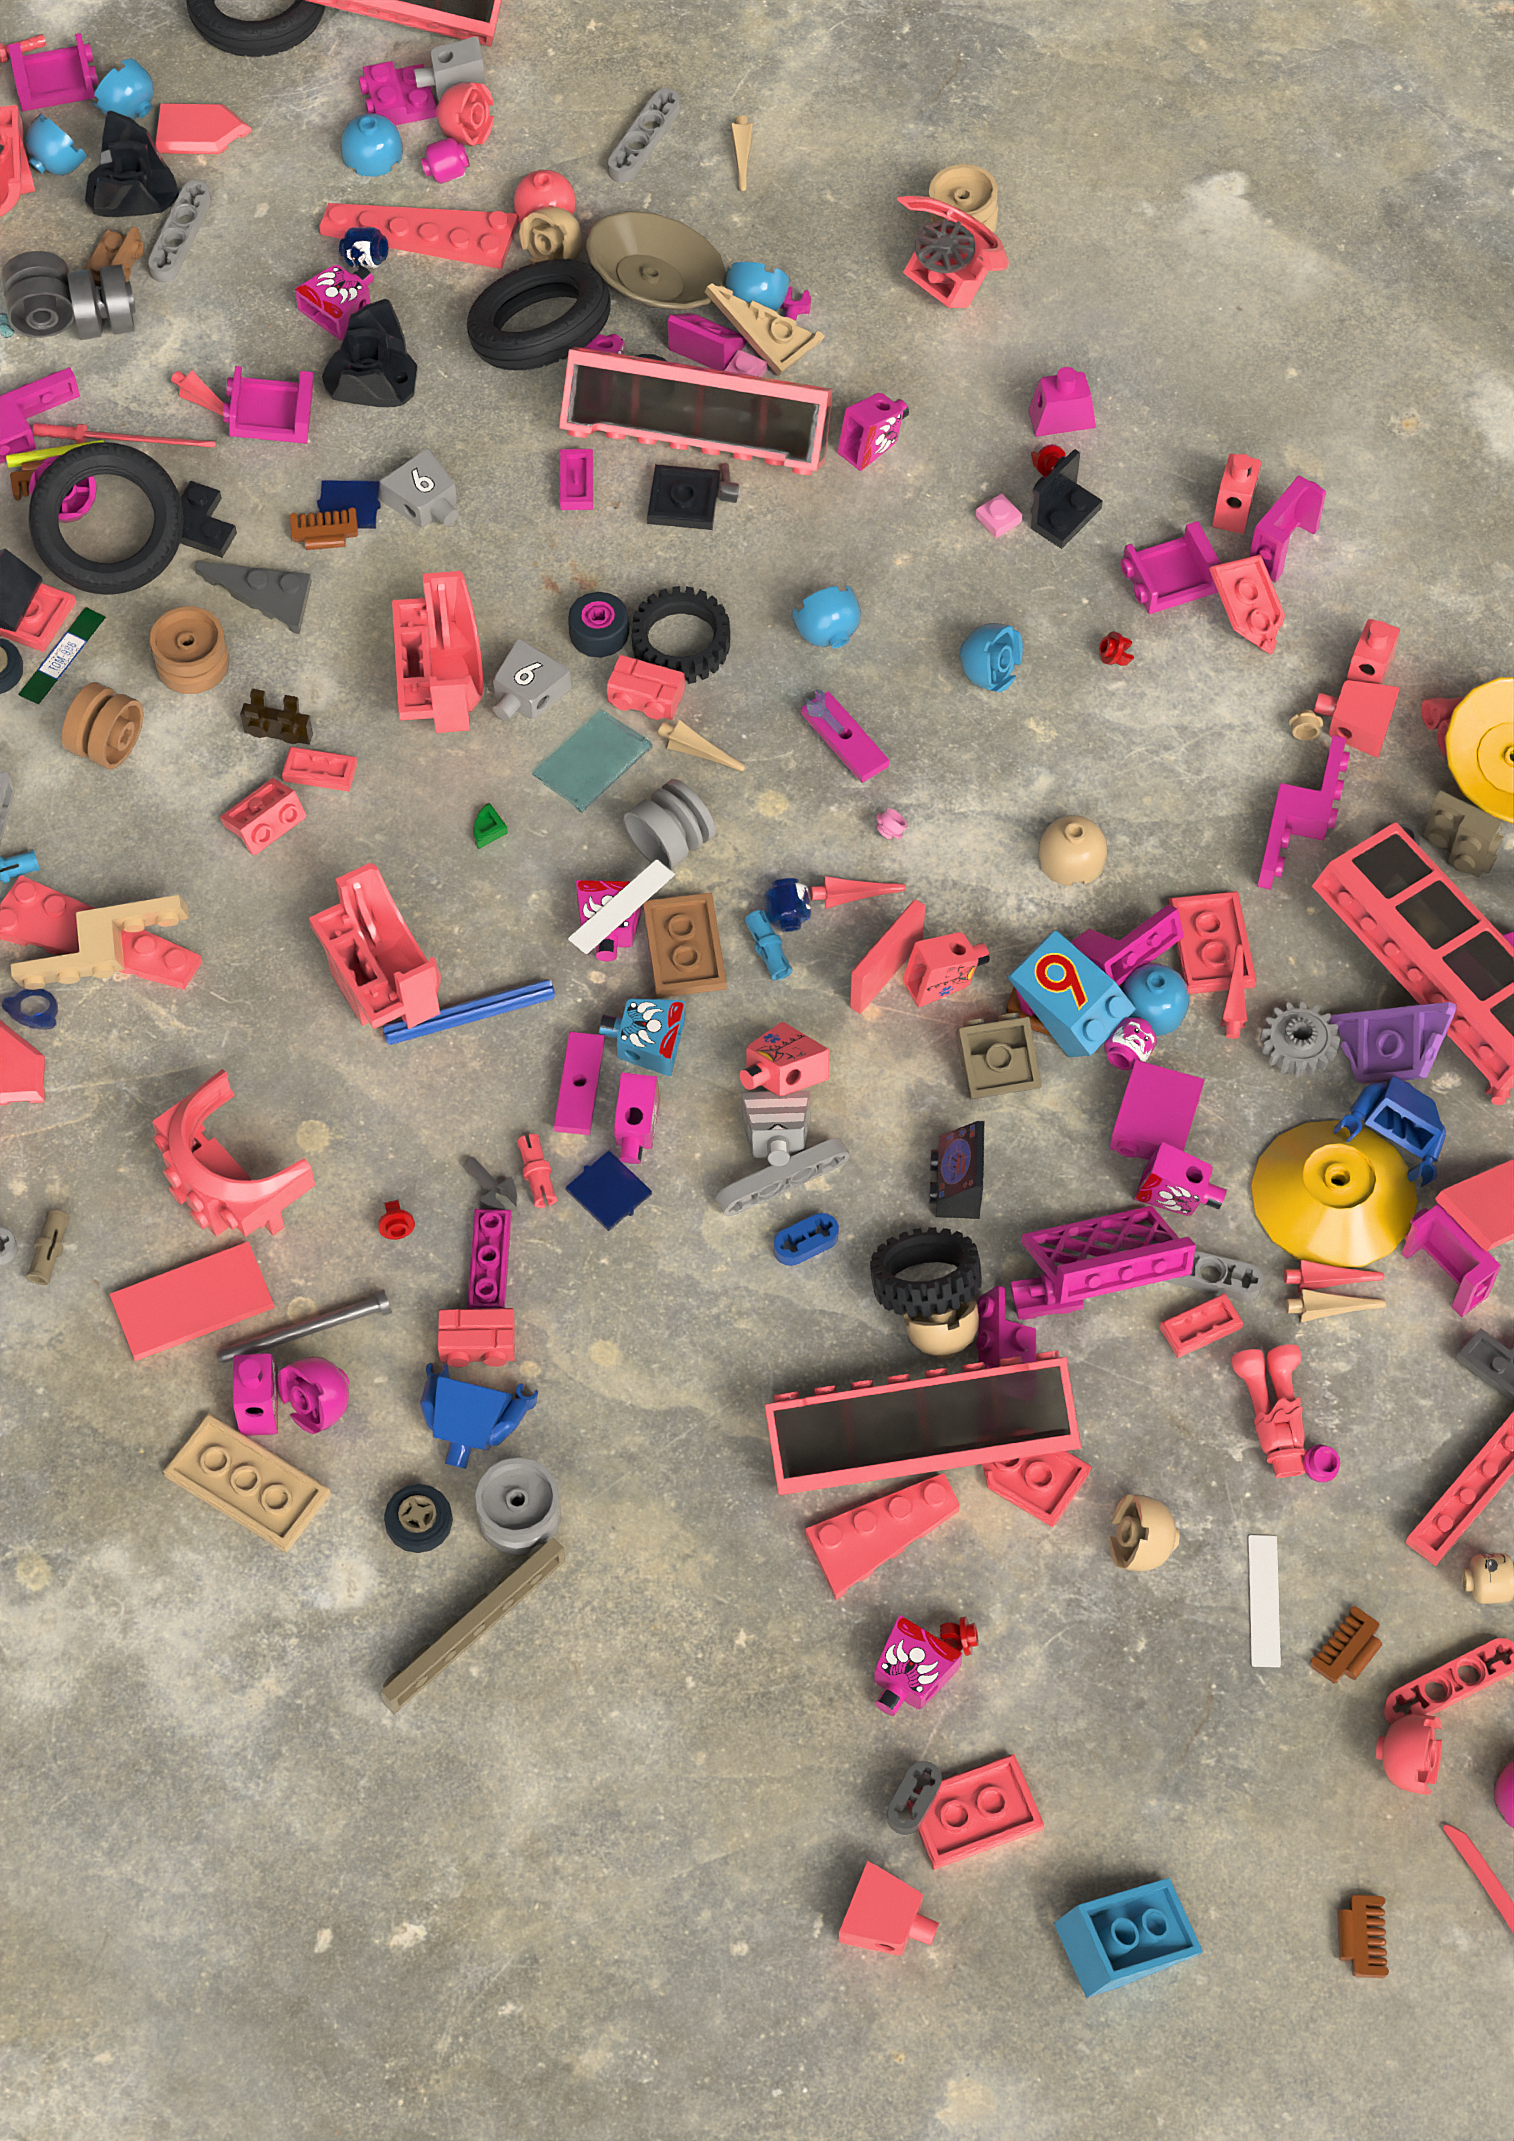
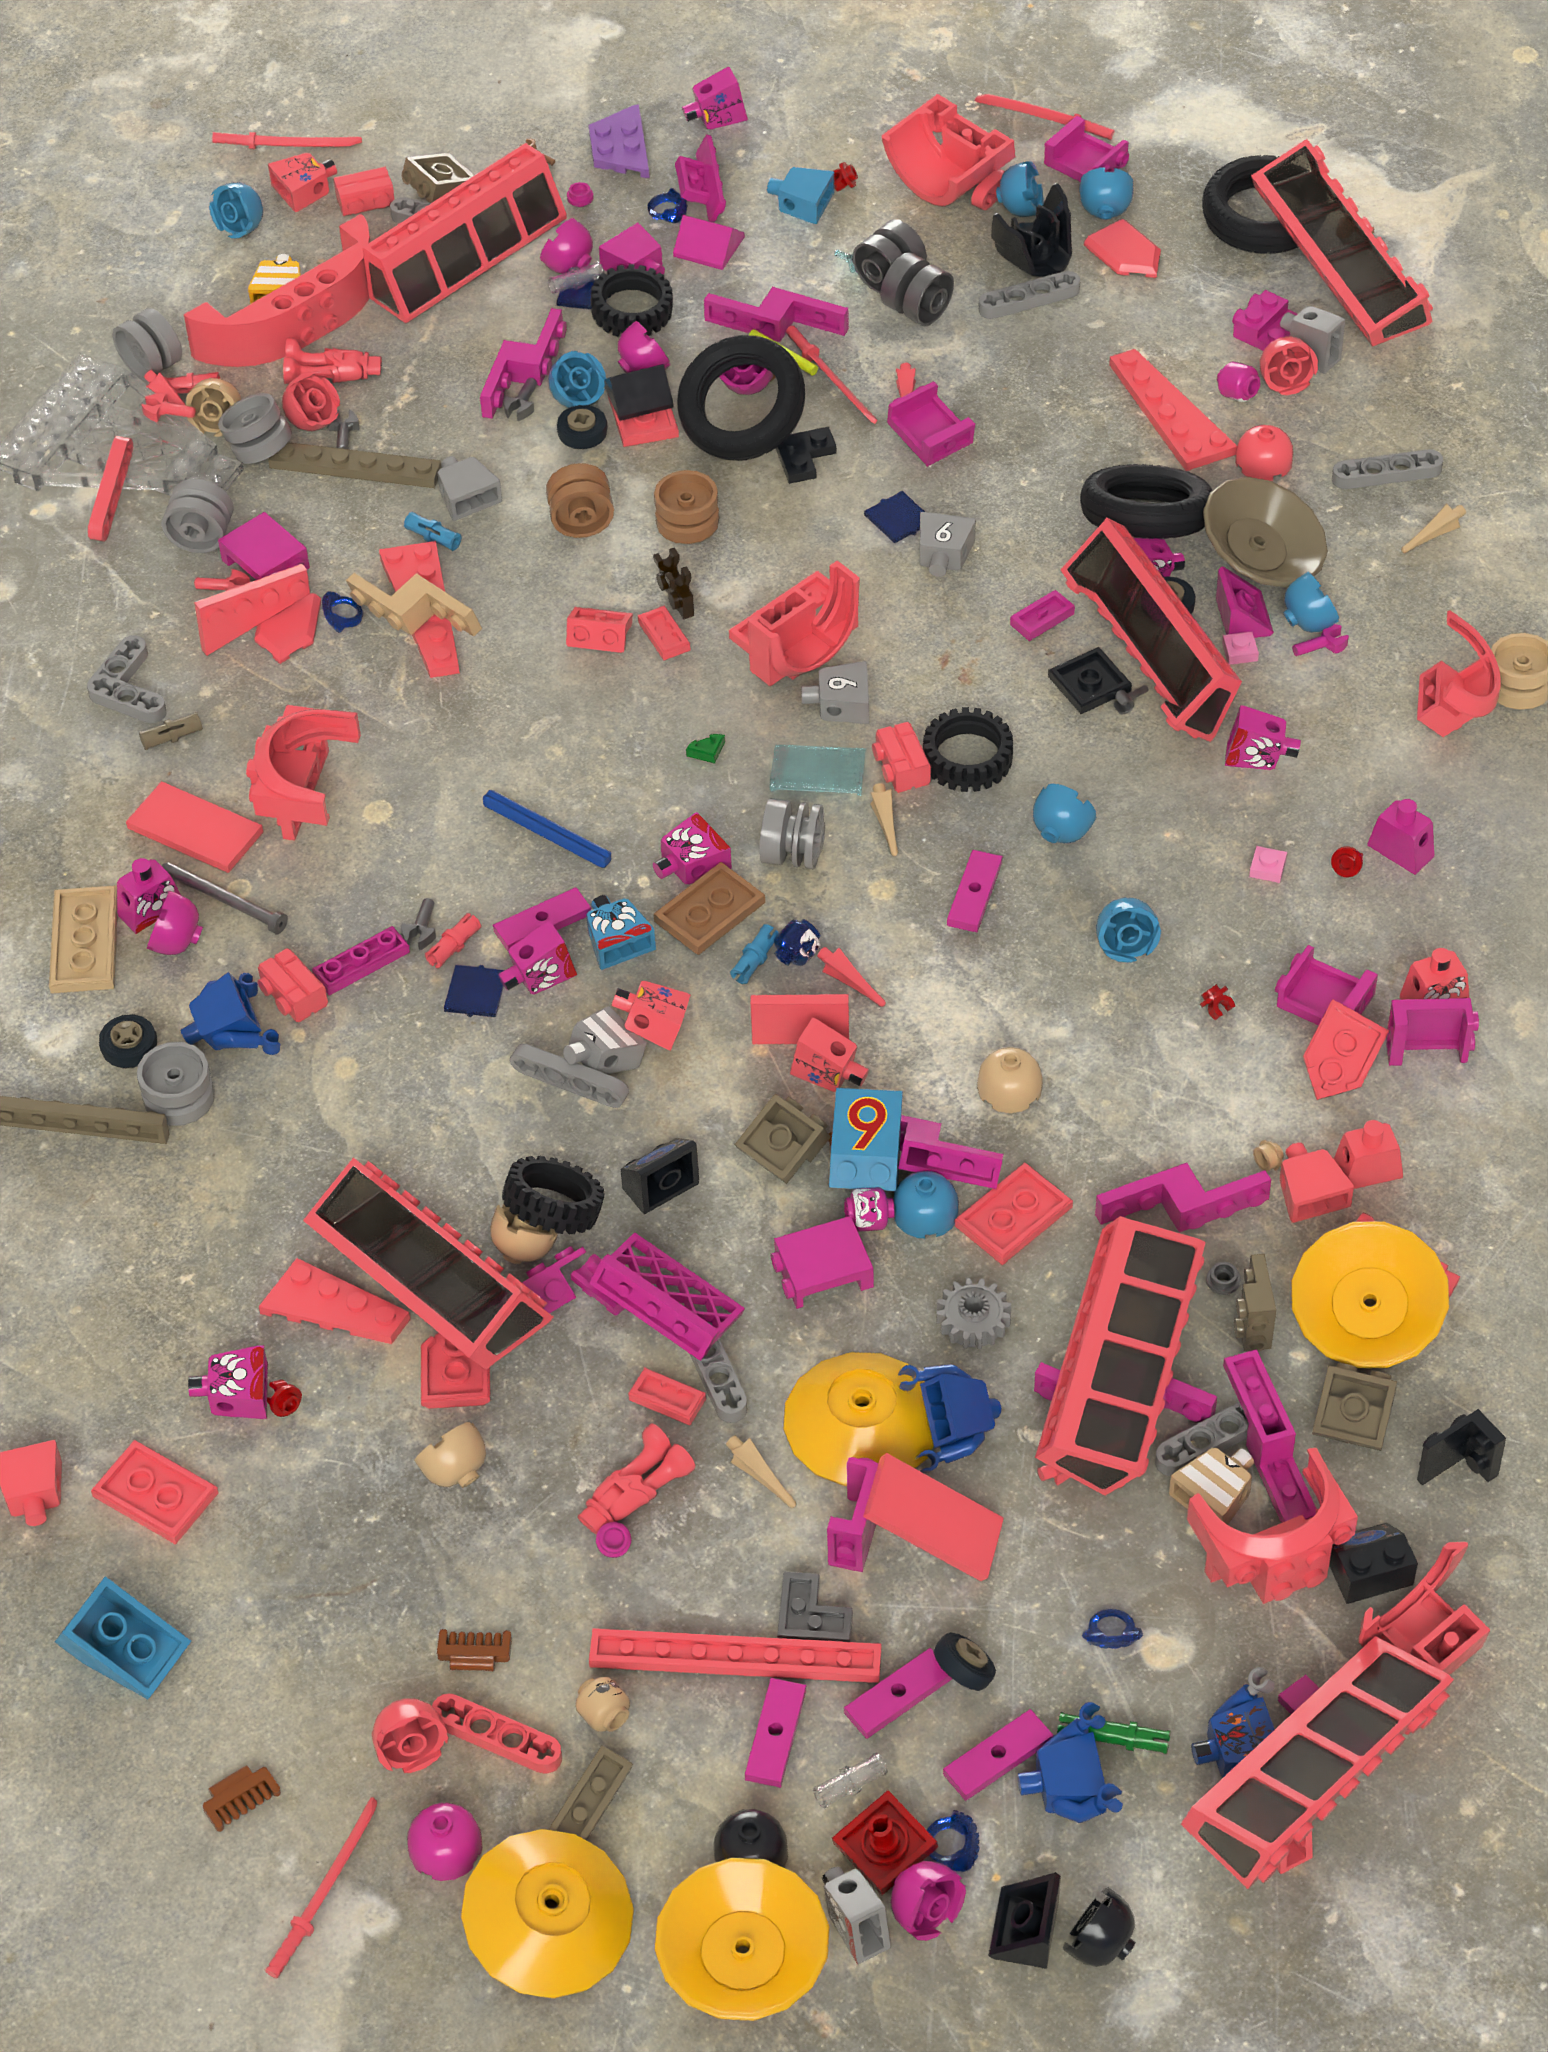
camera: 55 degrees right, 10 degrees down
(62, 656) = (632, 456): sticker -> none
(116, 250) = (974, 278): medium nougat bracket -> none
(270, 591) = (783, 522): dark grey wing -> none
(325, 535) = (861, 519): dark orange piece -> none
(334, 297) = (1058, 402): dark pink torso -> none
(364, 247) = (1115, 387): clear blue head -> none
(371, 145) = (1209, 338): dark azure cylinder -> none
(372, 360) = (1019, 450): black piece -> none
(376, 954) = (530, 759): coral piece -> none
(395, 1222) = (341, 889): red plate -> none
(551, 234) = (1232, 463): tan cylinder -> none
(598, 624) = (927, 697): black wheel -> none
(621, 906) = (698, 848): white sticker -> none
(771, 335) = (1281, 641): tan wing -> none
(807, 1242) = (533, 1121): blue beam -> none
(819, 709) = (978, 858): clear light blue hand -> none
(891, 824) = (925, 961): bright pink plate -> none
(921, 1802) = (130, 1442): dark grey beam -> none
(944, 246) = (1455, 671): flat silver wheel -> none
(1061, 504) = (1313, 886): black bracket -> none
(1178, 1182) = (770, 1304): dark pink torso -> none
(1235, 1007) = (966, 1256): coral piece -> none
(1264, 1601) = (471, 1574): white sticker -> none
(1316, 1276) = (774, 1445): coral piece -> none
(1394, 1040) = (1018, 1366): medium lavender wing -> none

